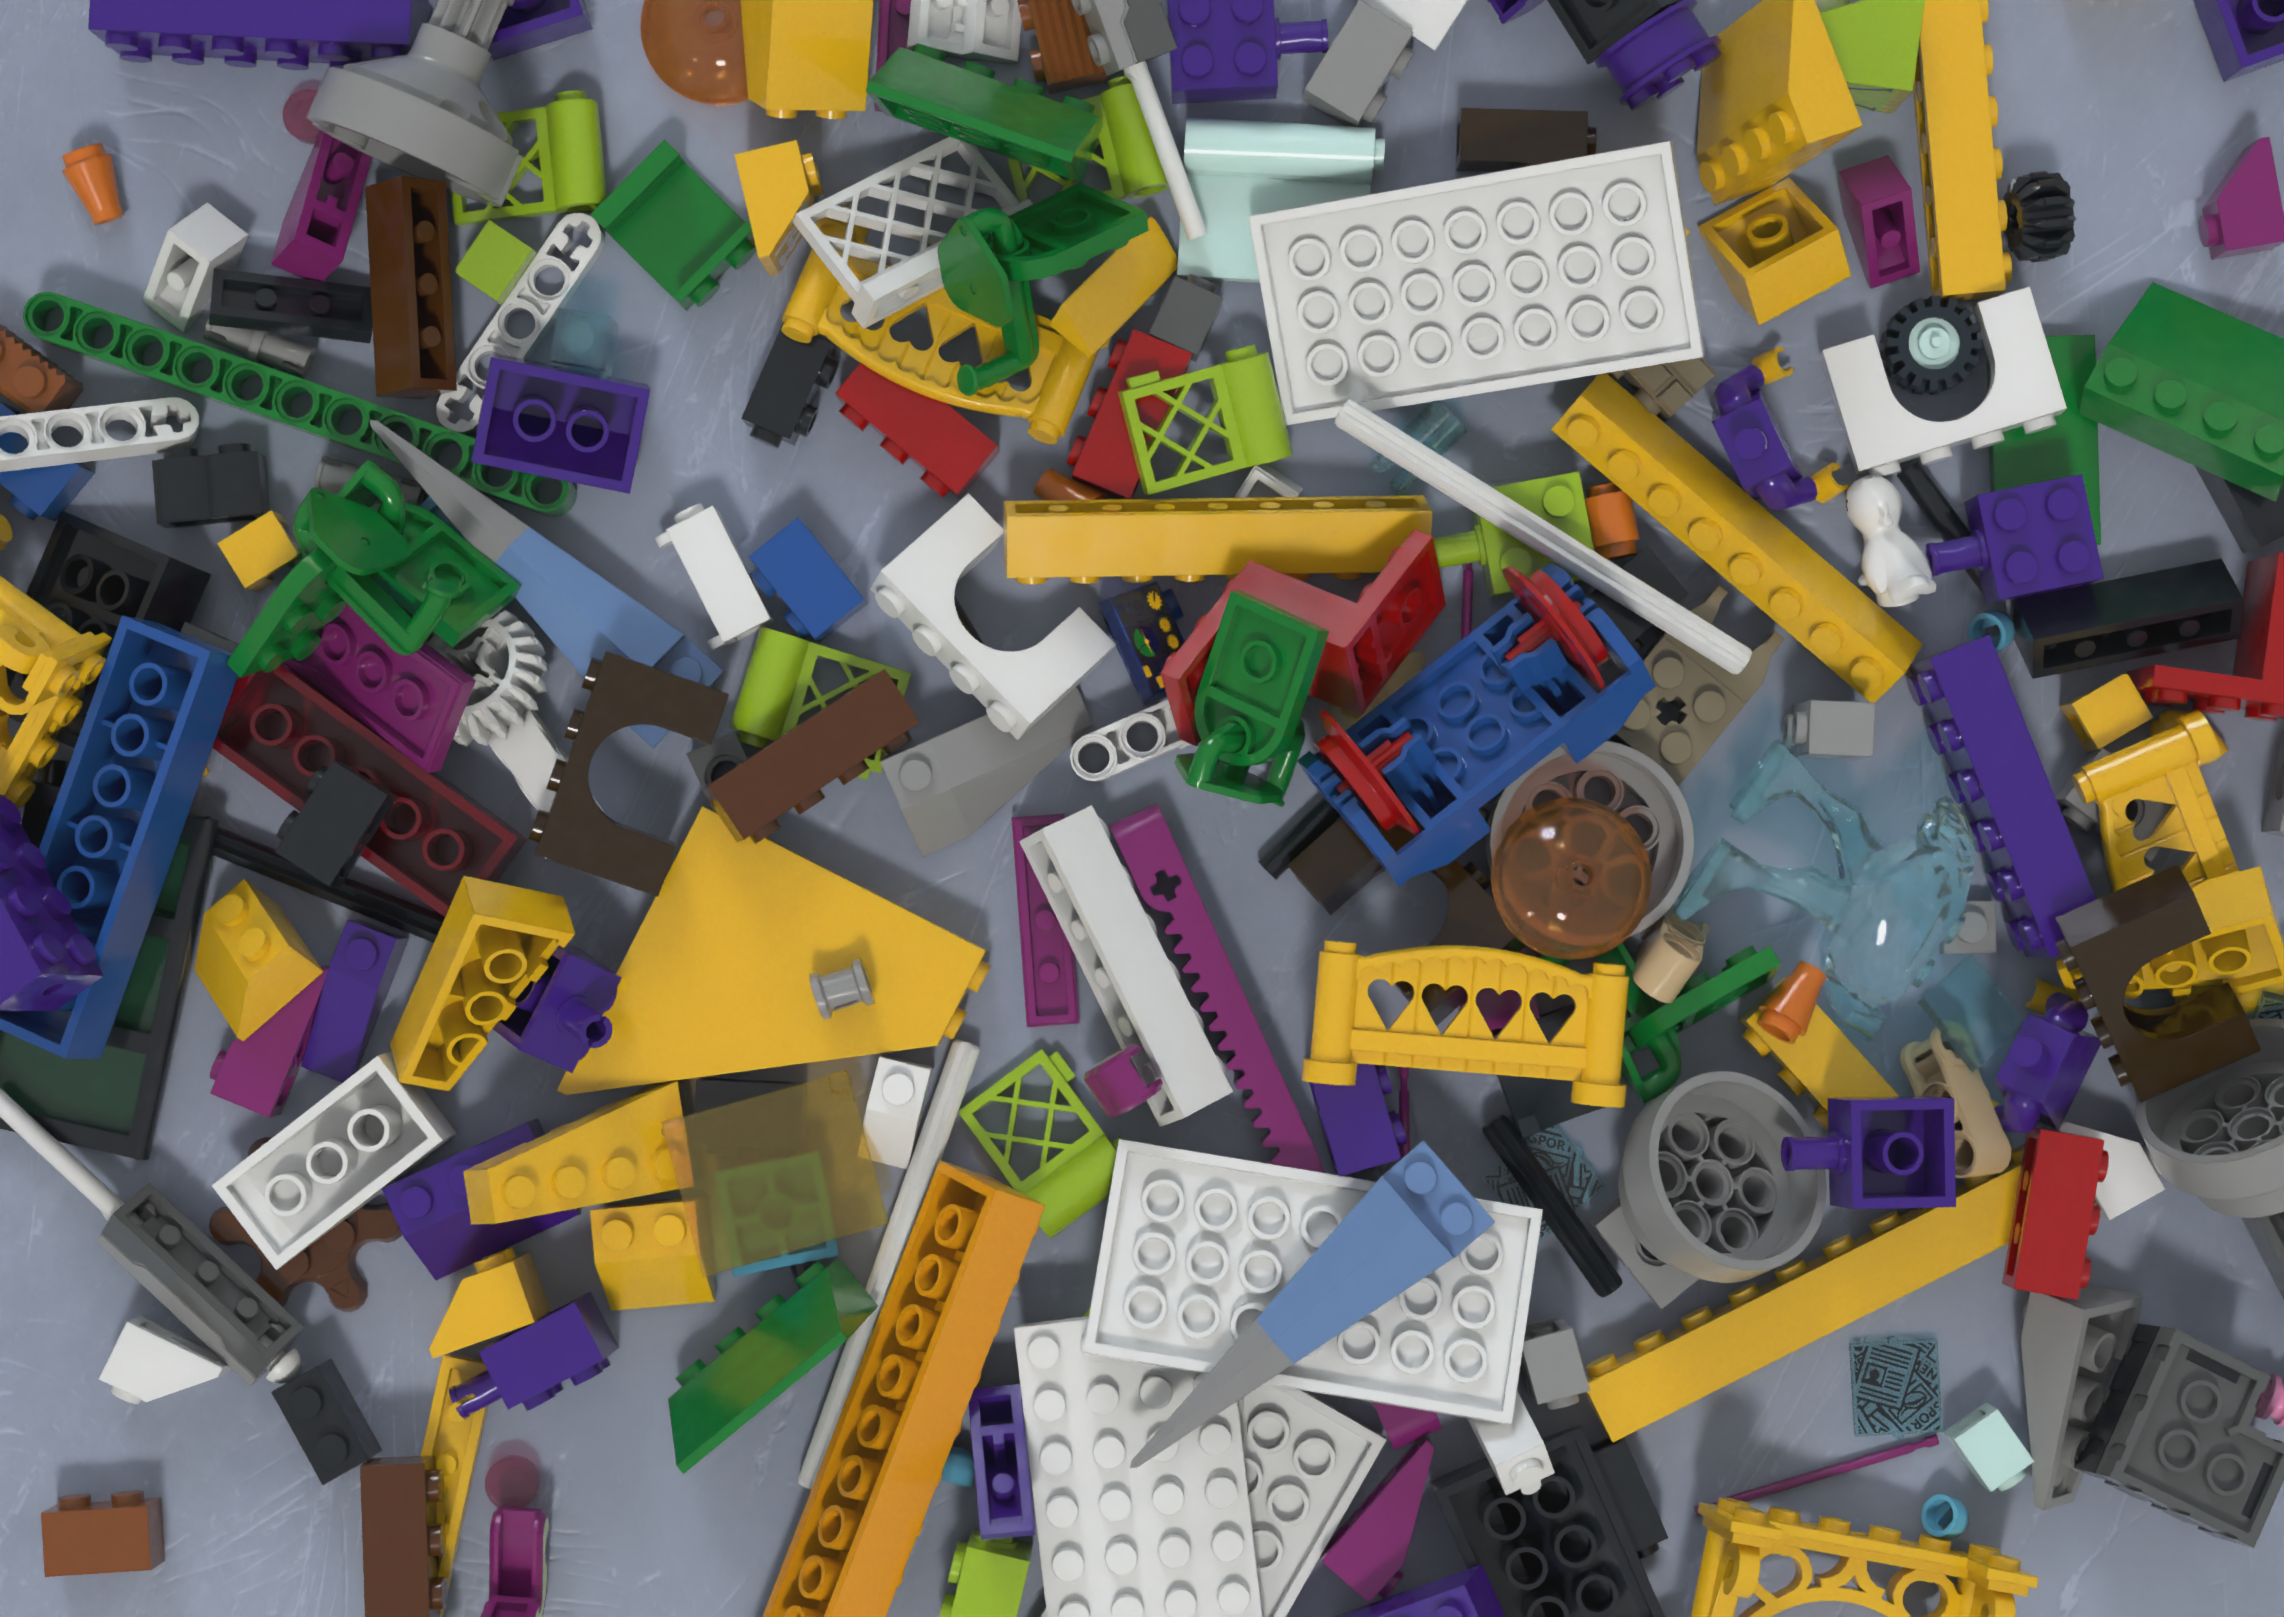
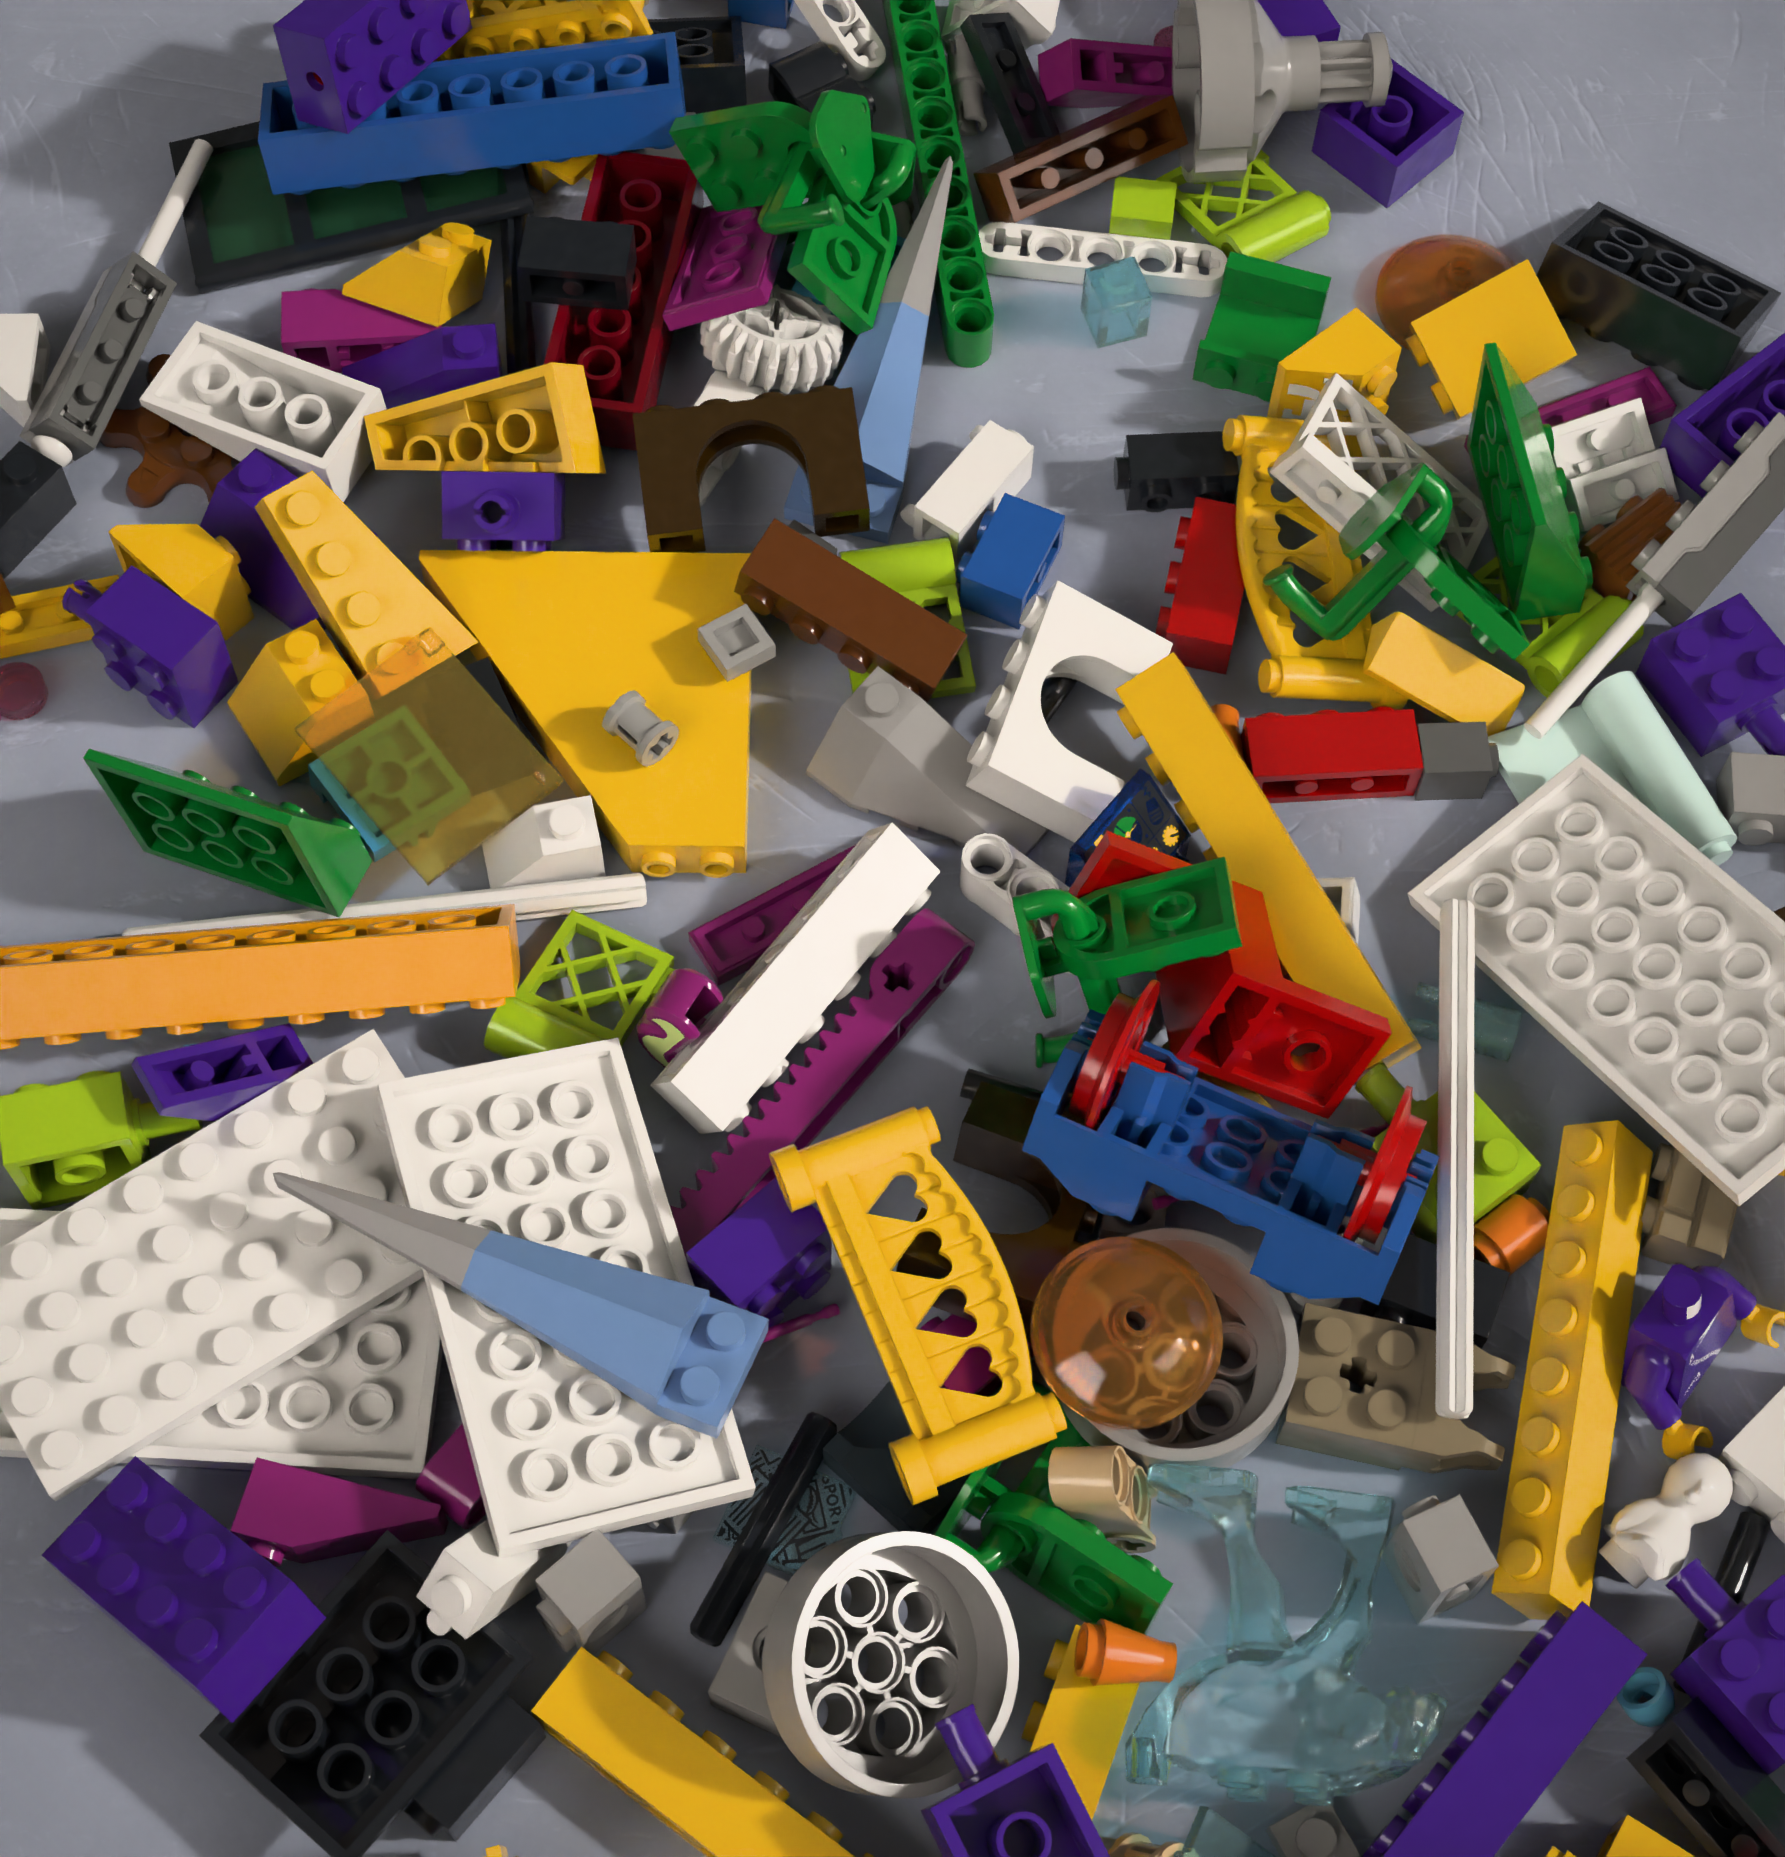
camera: 60 degrees right, 25 degrees down
(560, 423) = (1036, 301): dark purple slope -> none
(796, 868) = (736, 642): none -> light grey plate
(1246, 410) = (1402, 845): lime piece -> none

